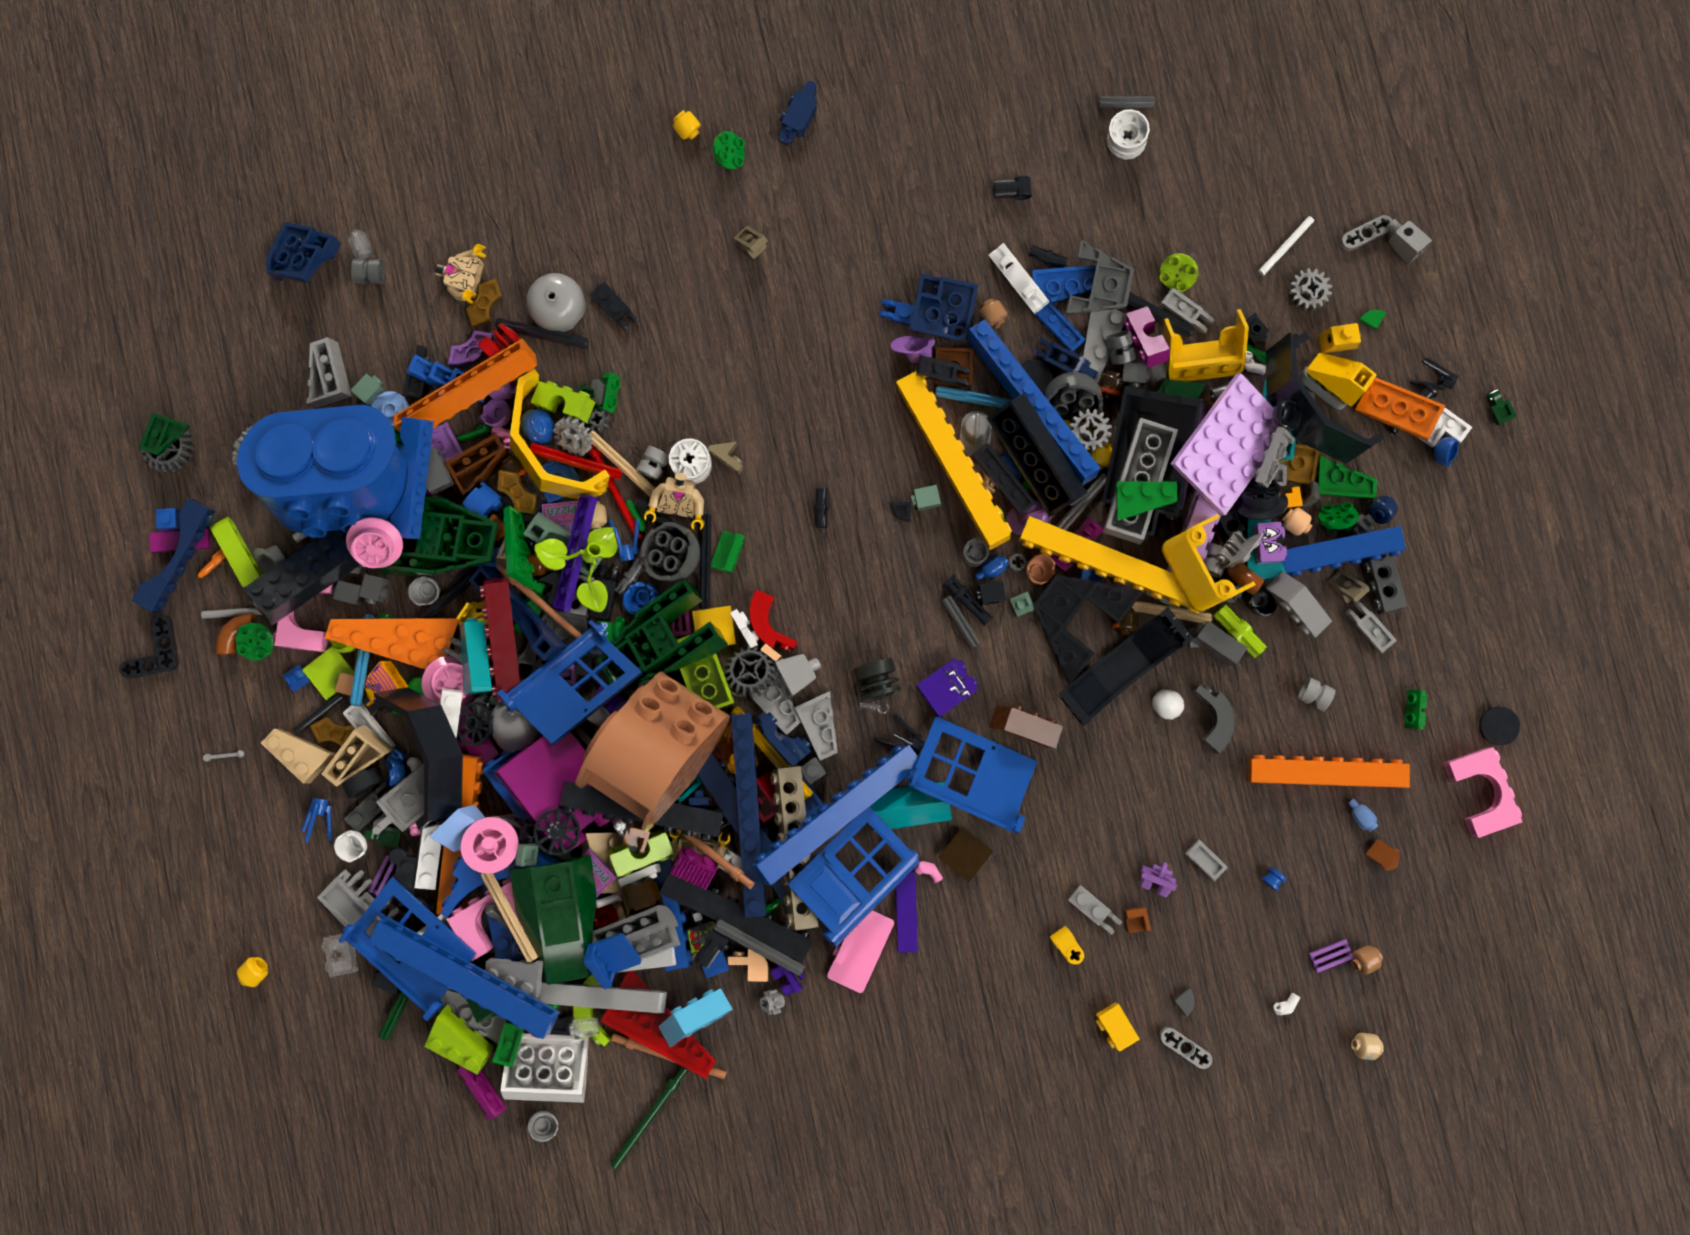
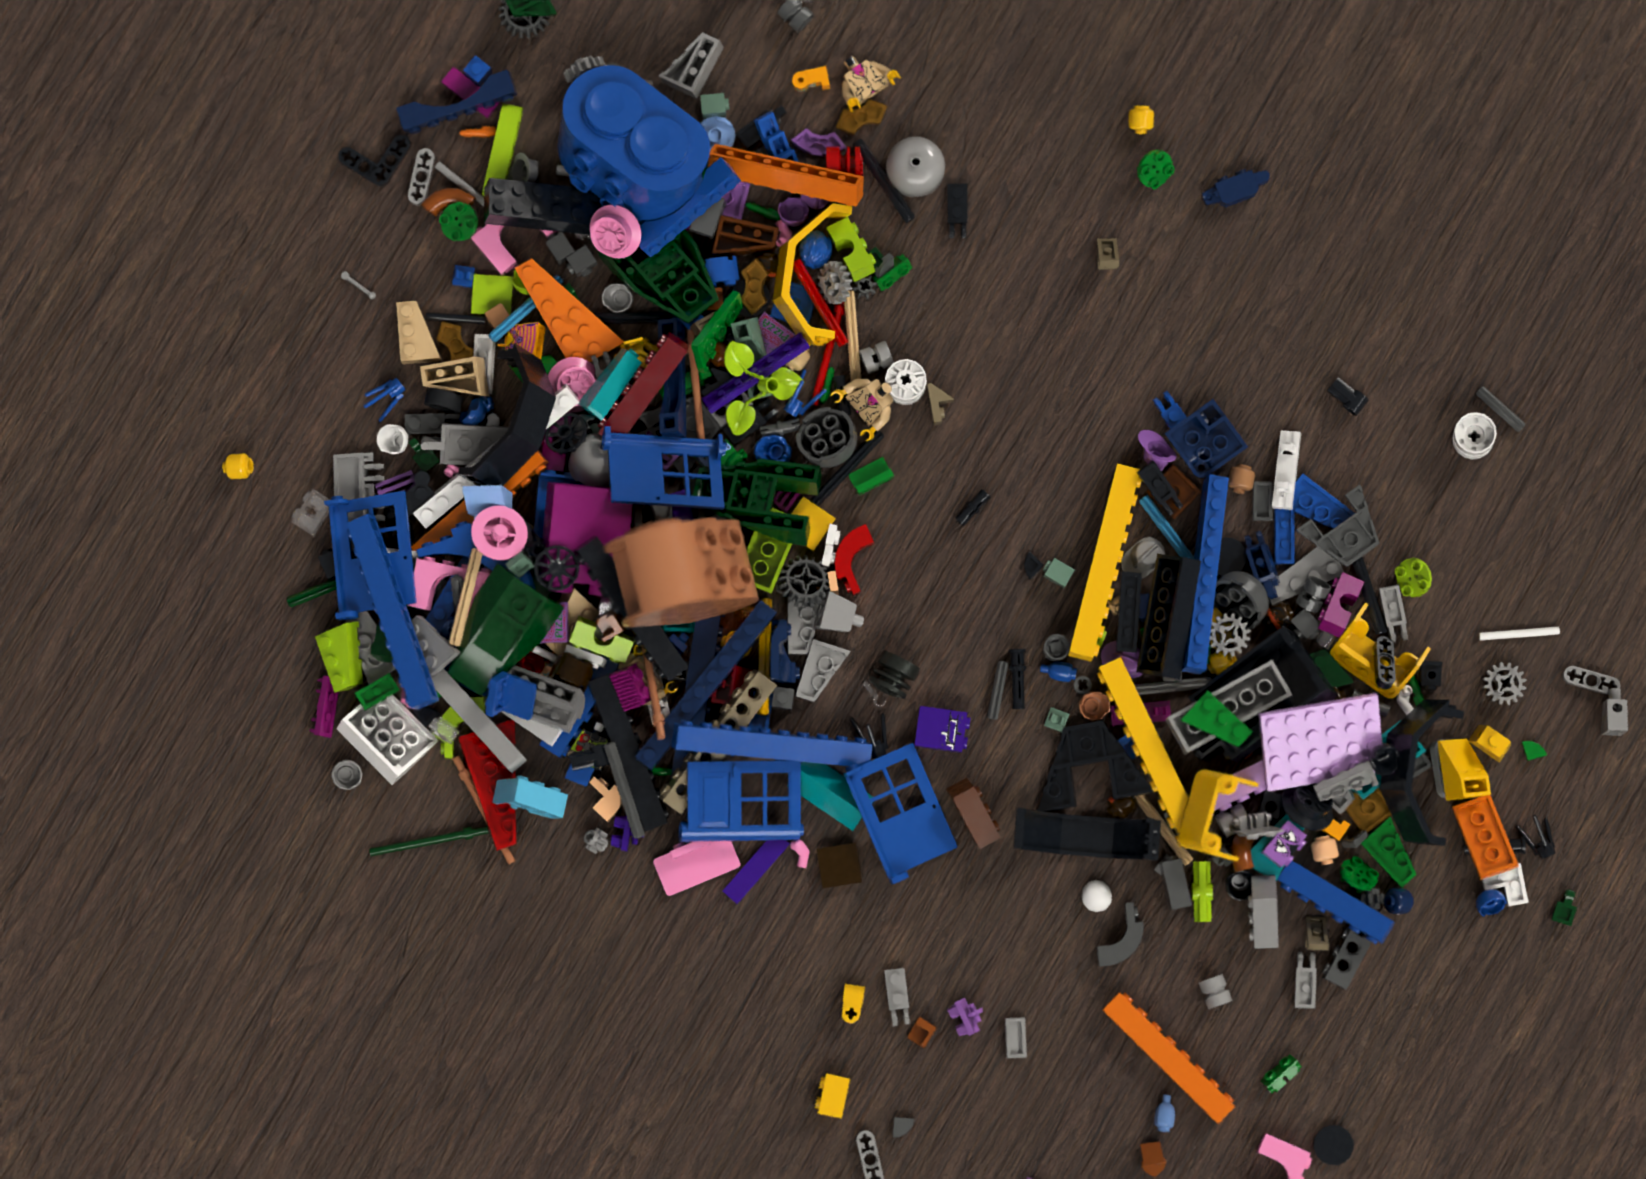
camera: 45 degrees right, 0 degrees up
(190, 632) = (419, 161): none -> light grey beam
(422, 306) = (810, 78): none -> light orange leg
(991, 593) = (1040, 689): black brick -> none
(1022, 316) = (1262, 501): none -> dark grey tile
(1048, 256) = (1325, 473): black pin -> none
(1218, 357) = (1387, 655): none -> black beam
(1274, 879) = (1053, 1097): blue wheel -> none

